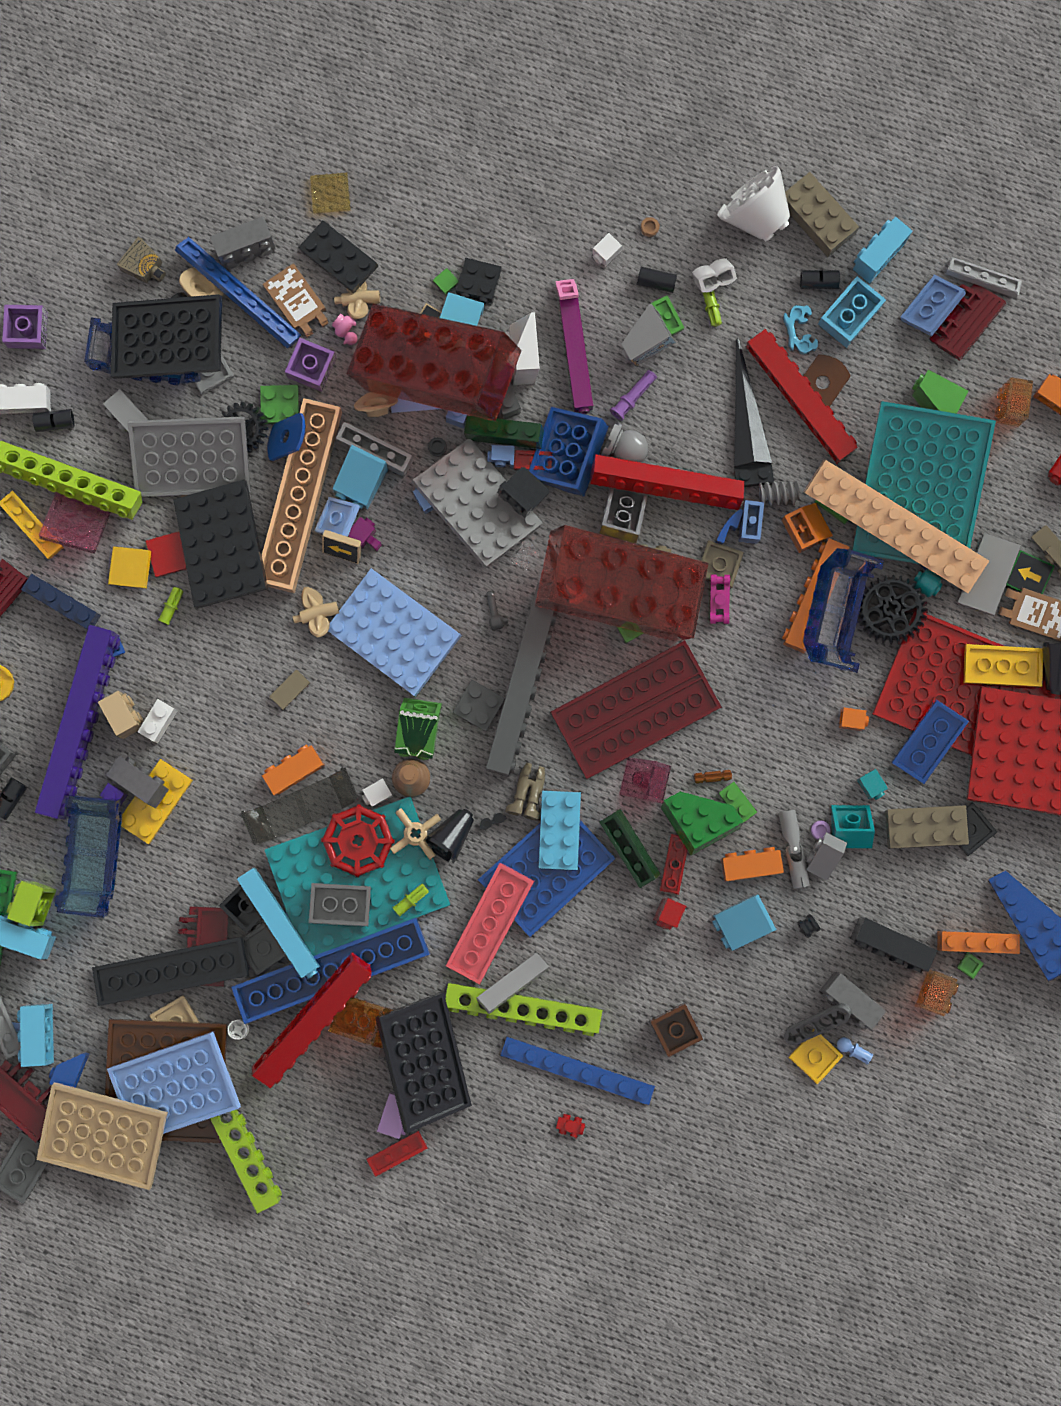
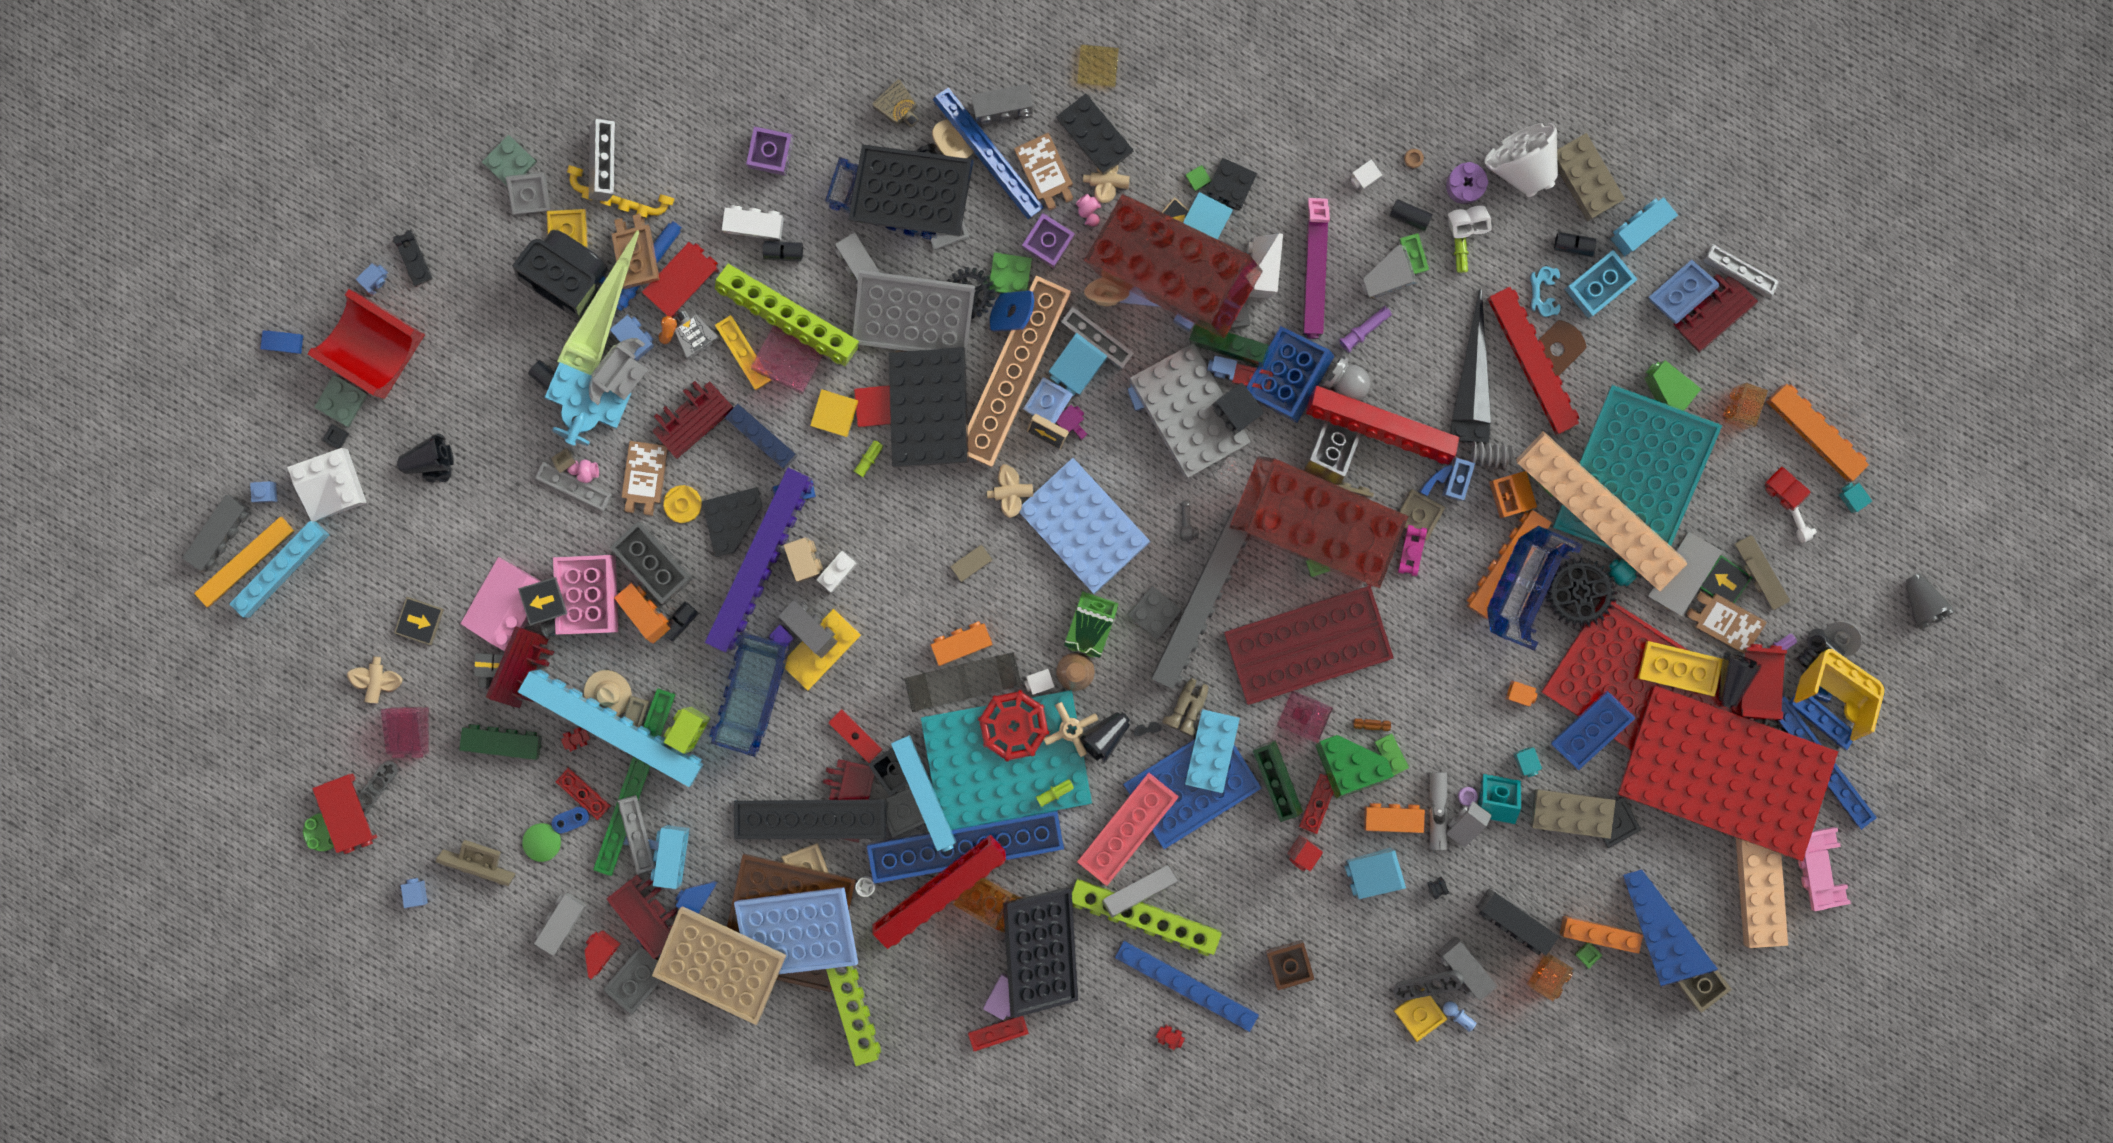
camera: 15 degrees right, 5 degrees up
(44, 689) = (731, 518): none -> black plate
(193, 873) = (846, 727): none -> red tile
(339, 904) = (986, 786): flat silver brick -> none
(437, 447) = (1159, 346): black plate -> none
(701, 230) = (1462, 173): none -> medium lavender brick

